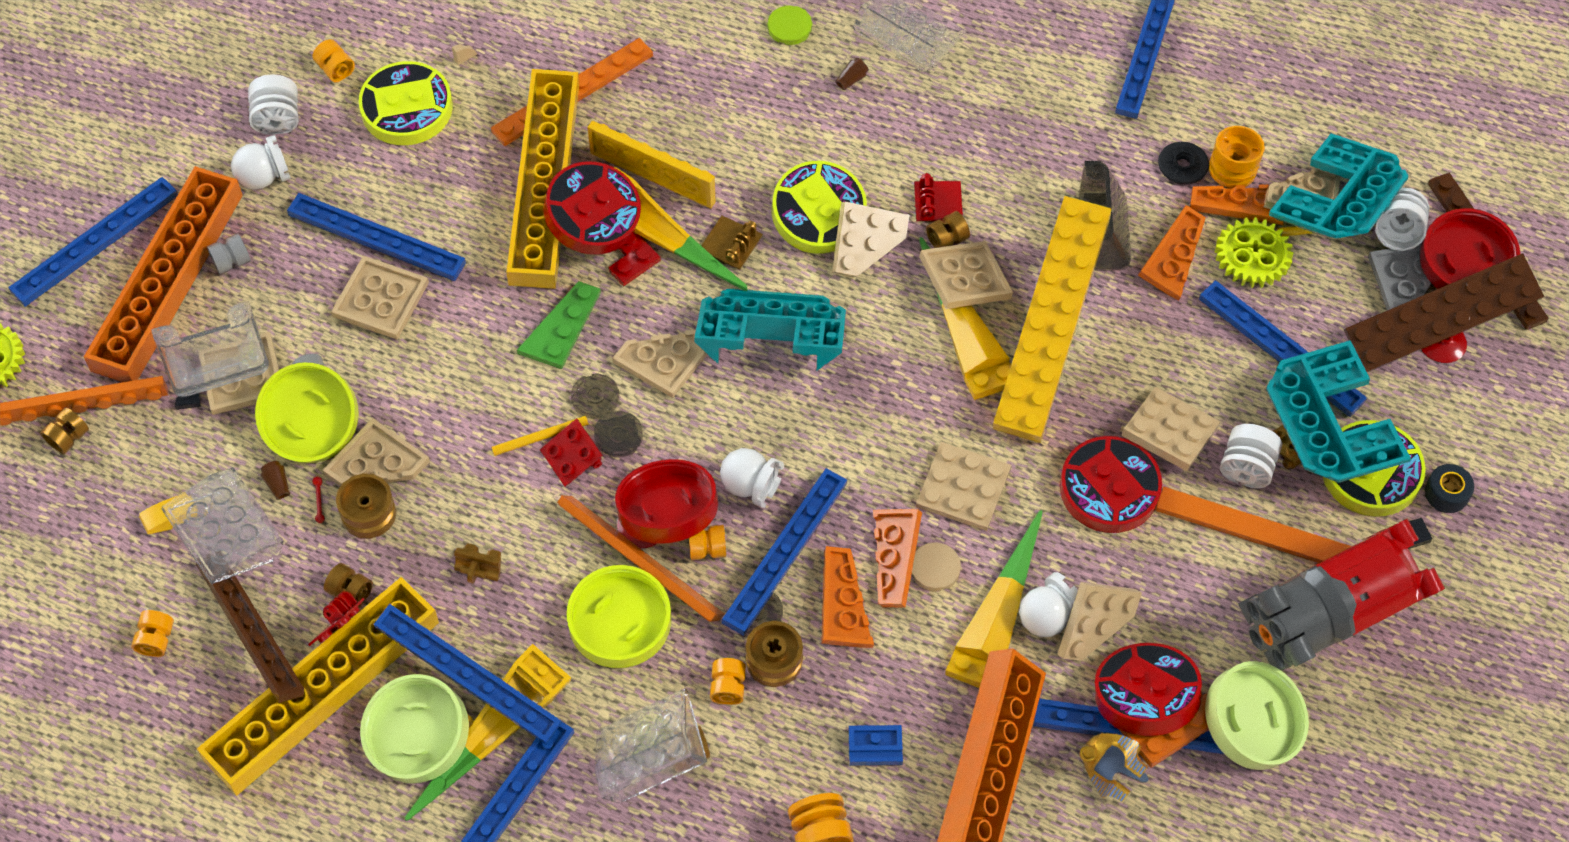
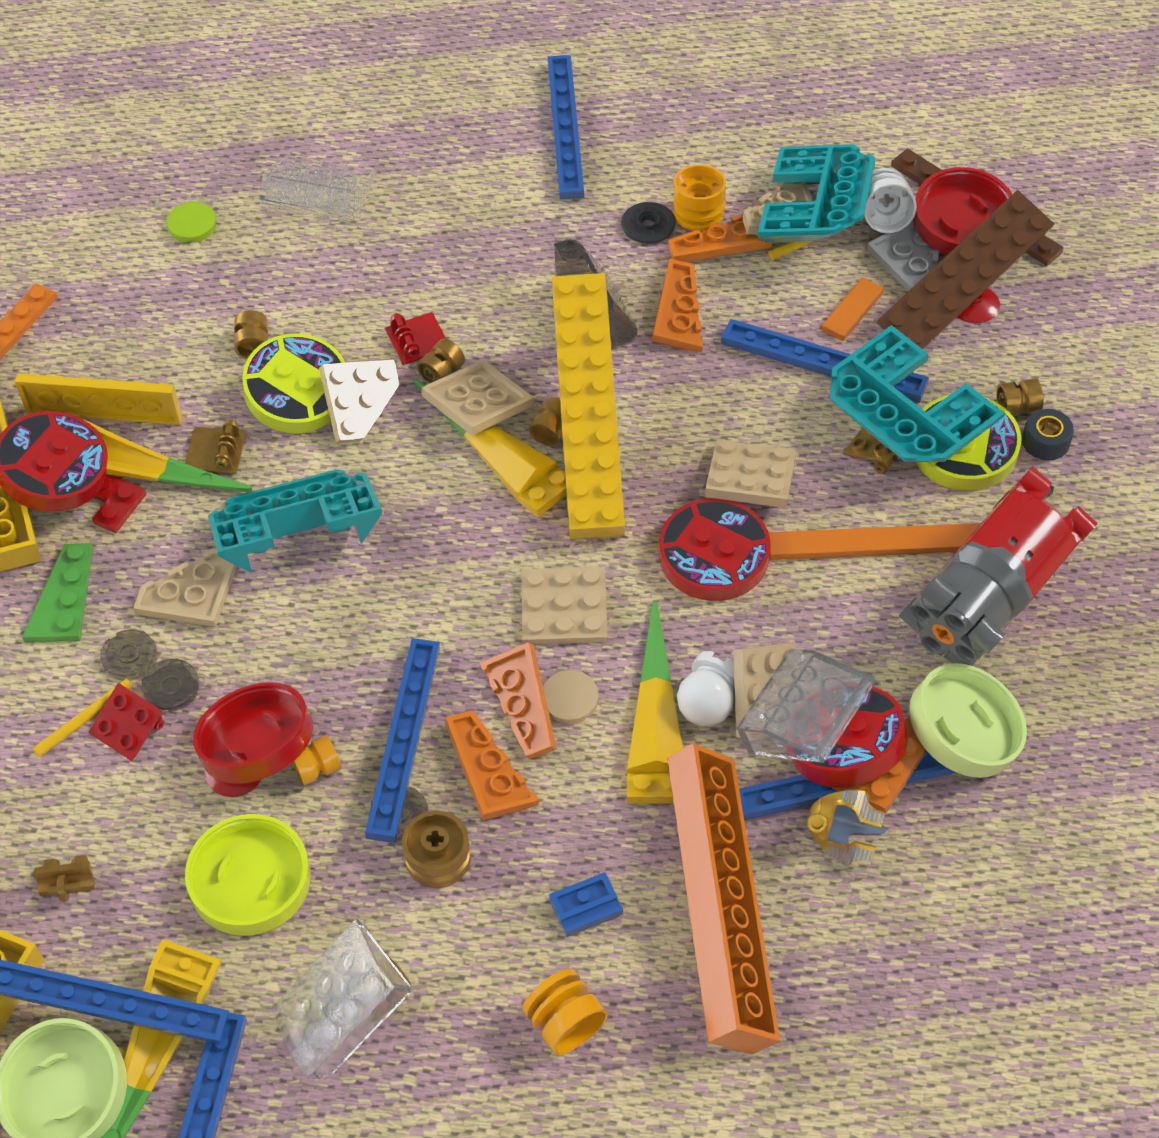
camera: 20 degrees left, 5 degrees down
(640, 558) = (247, 804): orange tile -> none
(728, 680) = (397, 897): light orange wheel -> none
(748, 474) = (330, 673): white tile -> none
(798, 147) = (249, 331): none -> pearl gold wheel
(852, 73) = (276, 246): reddish brown cone -> none
(1013, 320) = (547, 425): none -> pearl gold wheel
(1121, 652) = (804, 707): none -> clear slope
(1251, 455) = (843, 470): white wheel -> none
(1253, 252) = (755, 281): neon yellow gear -> none
(1329, 308) = (852, 309): none -> orange tile
(1440, 446) = (1023, 397): none -> pearl gold wheel

